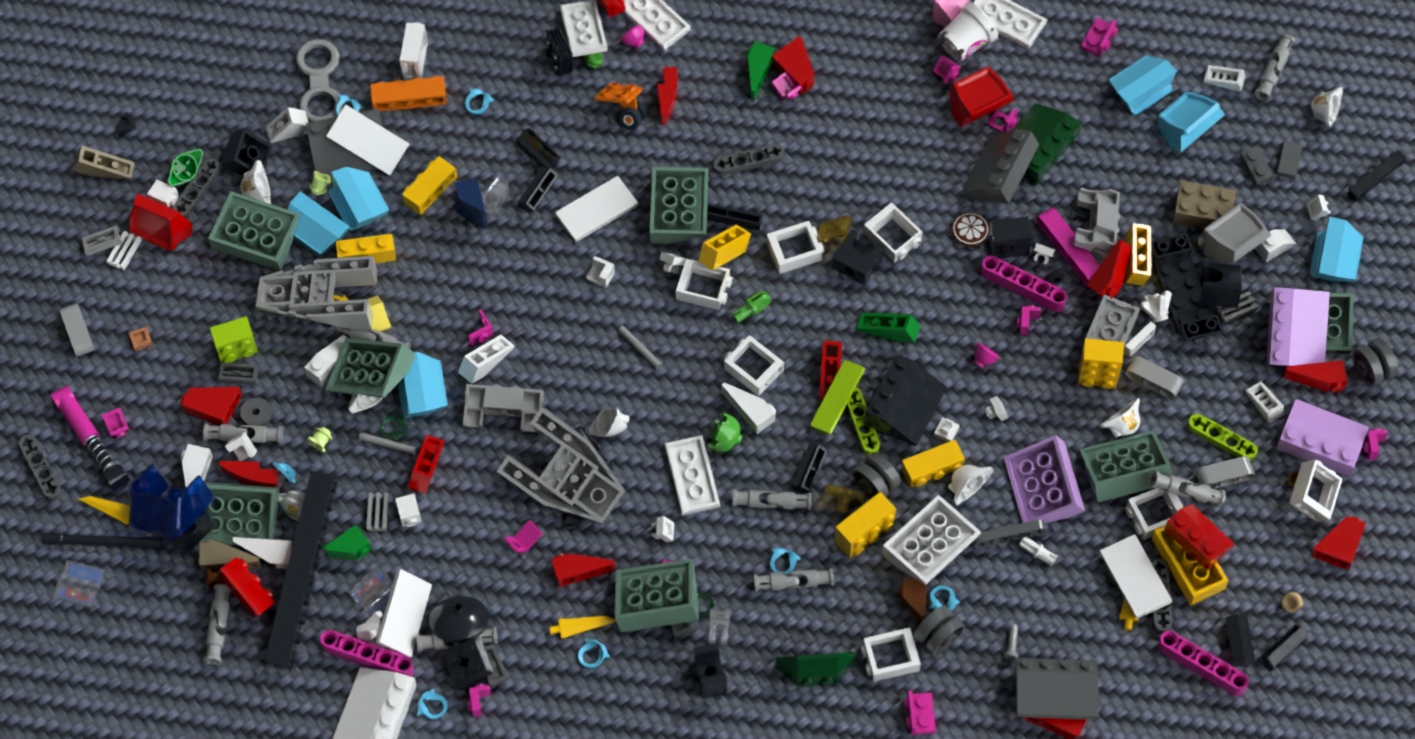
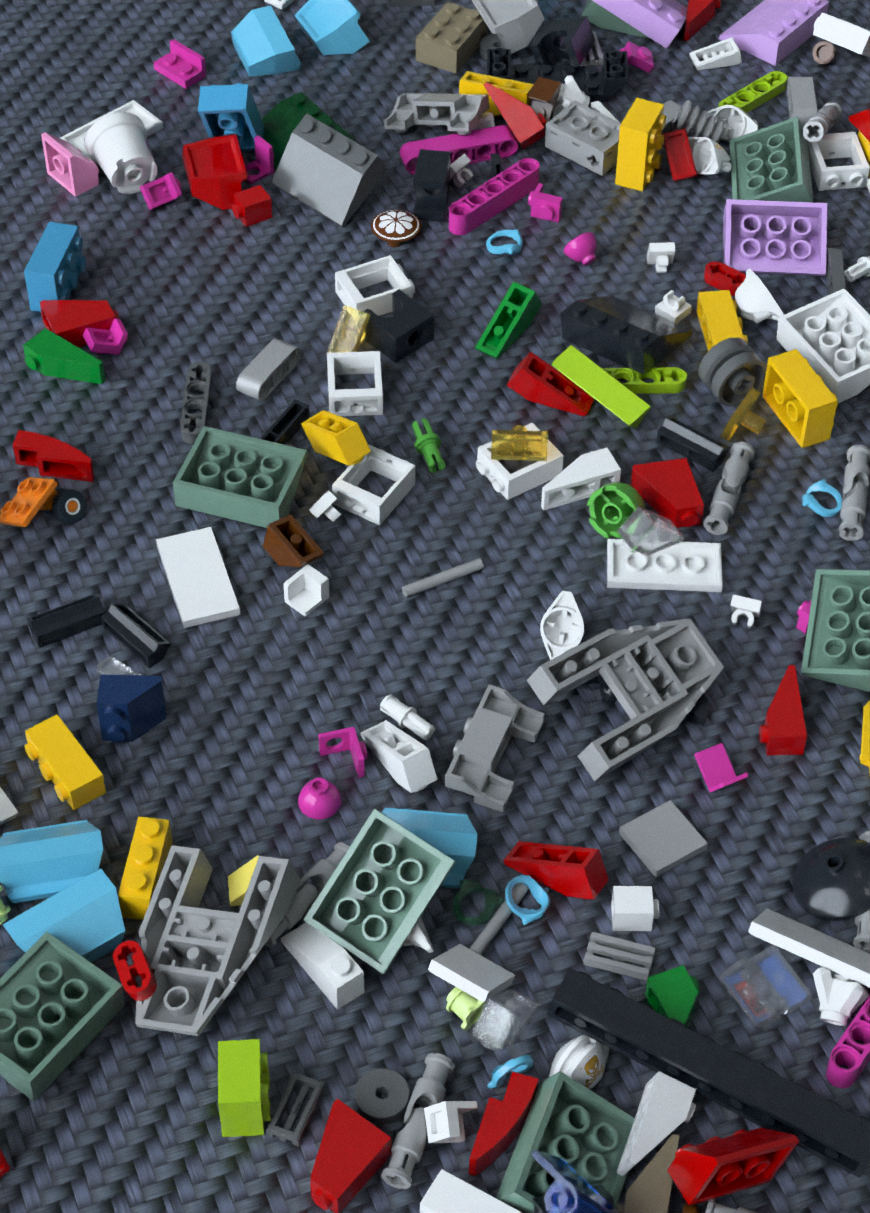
camera: 75 degrees left, 15 degrees down
(288, 265) = (140, 967): none -> red beam
(316, 459) = (504, 1019): none -> clear slope
(339, 434) = (471, 972): none -> white tile
(393, 456) = (539, 893): none -> medium azure piece
(444, 326) = (319, 799): none -> dark pink brick
(468, 518) = (663, 838): none -> light grey tile
(517, 356) = (406, 717): none -> white axle
(628, 251) = (290, 543): none -> reddish brown slope
(706, 456) = (648, 532): none -> clear slope
(750, 356) = (519, 444): none -> clear yellow tile
(755, 464) = (670, 490): none -> red slope
(791, 191) = (268, 369): none -> light grey beam
(835, 32) = (54, 264): none -> dark azure brick
(953, 131) = (252, 205): none -> red brick
(971, 308) = (511, 249): none -> medium azure piece
(989, 458) = (723, 277): none -> red beam
(1022, 86) = (231, 111): none -> dark azure brick
(1113, 397) = (679, 155): none -> red tile
(1139, 287) = (544, 97): none -> reddish brown slope
(1152, 402) = (699, 122): none -> light grey piece
(1174, 426) = (735, 120): none -> white hat
(1234, 343) = (639, 56): none -> dark pink bracket

